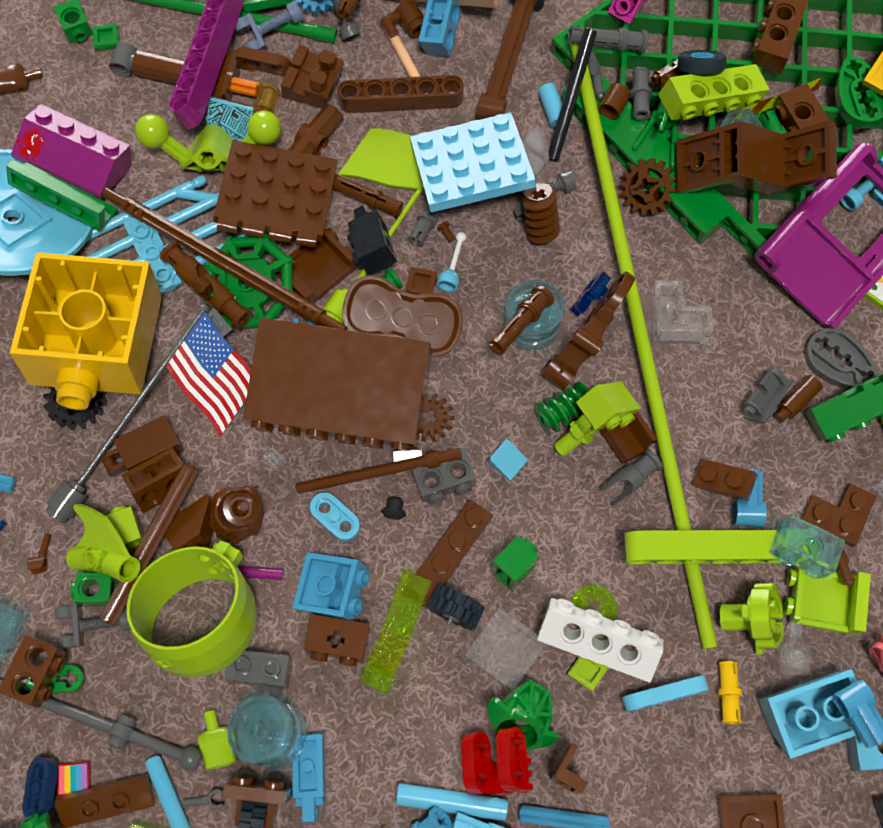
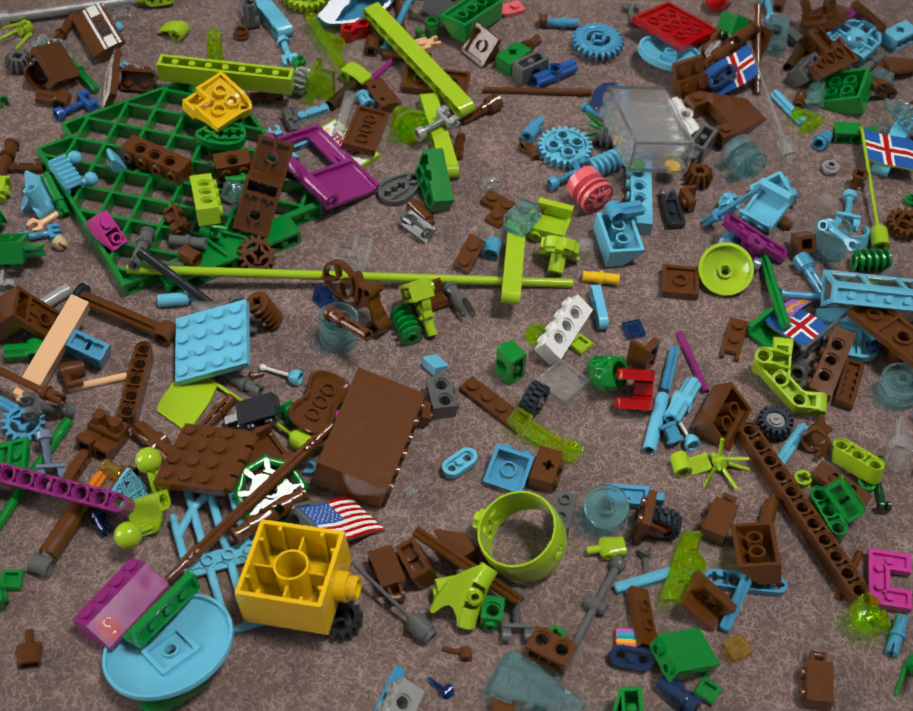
camera: 85 degrees left, 20 degrees down
(236, 513) = (450, 514): reddish brown hair -> none
(394, 508) = (458, 429): black piece -> none
(421, 281) = (293, 391): reddish brown plate -> none
(431, 460) = (433, 393): reddish brown bar -> none
(635, 754) = (633, 329): none -> clear blue tile
(701, 61) = (184, 196): black bush -> none

